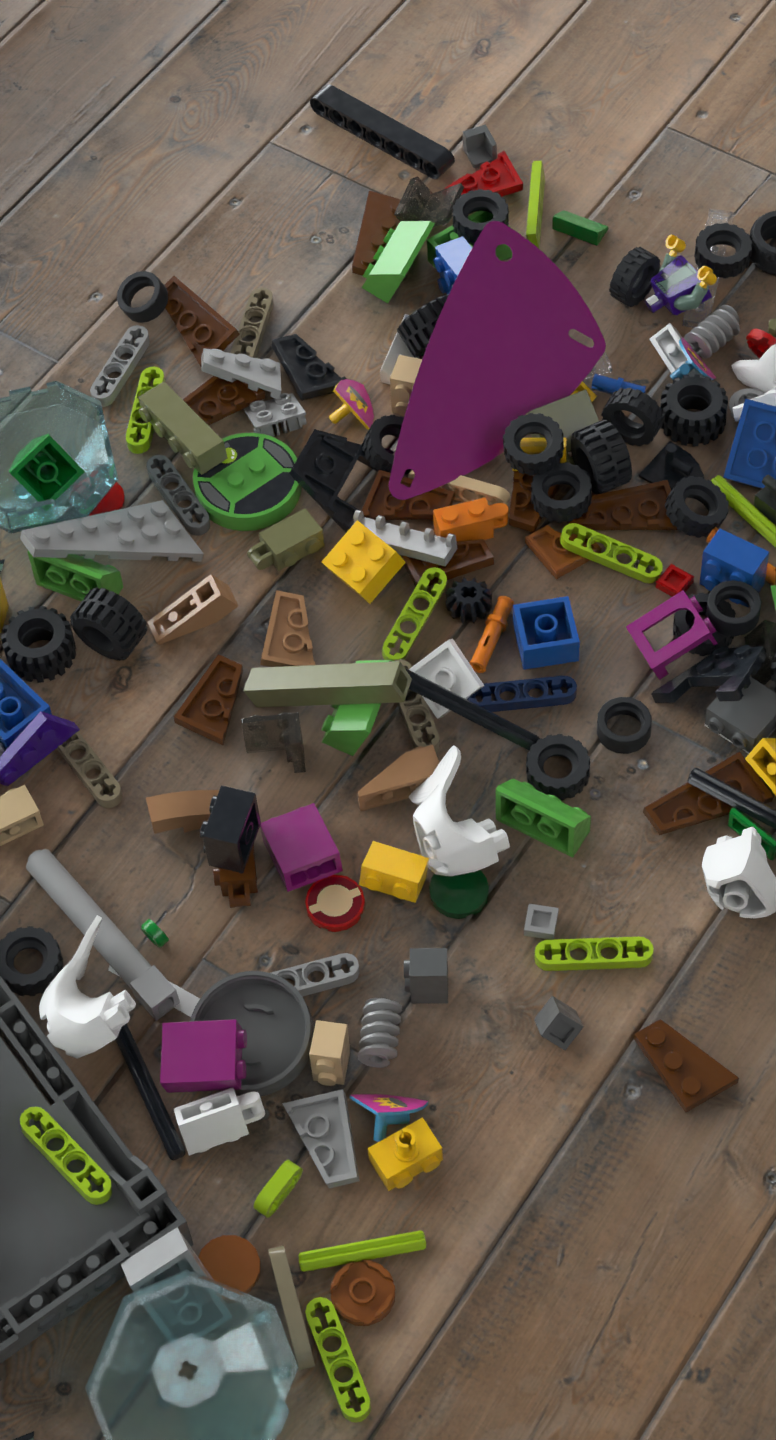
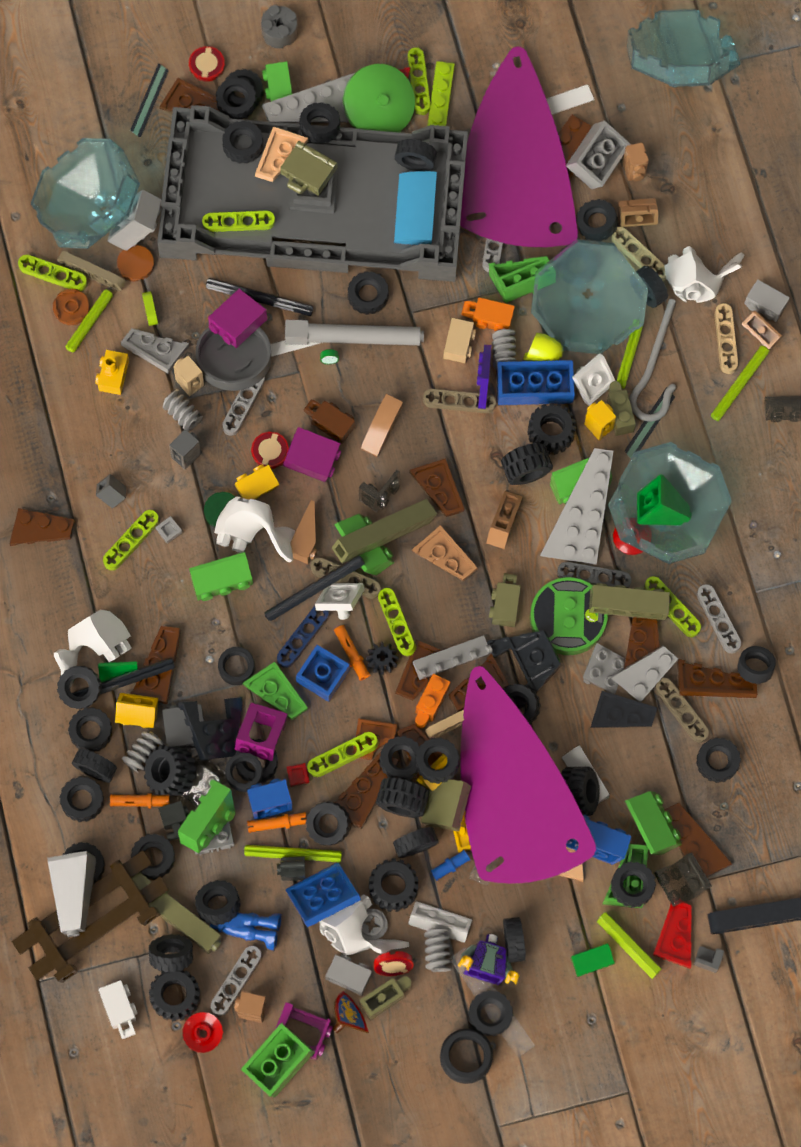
camera: 125 degrees right, 15 degrees up
(75, 1020) = (307, 282): white hips -> none
(217, 1119) = (204, 304): white brick -> none
(231, 828) = (339, 416): black brick -> none
(275, 250) = (724, 746): none -> black tyre
(354, 400) = (569, 713): shield -> none
(363, 562) = (452, 622): yellow brick -> none
(388, 1110) = (141, 382): shield -> none
(402, 382) = (552, 742): tan brick -> none
(558, 746) = (236, 626): black tyre -> none
(608, 665) = (277, 691): none -> bright green wing
(672, 465) = (369, 845): black shield -> none
(693, 361) = (422, 913): shield -> none

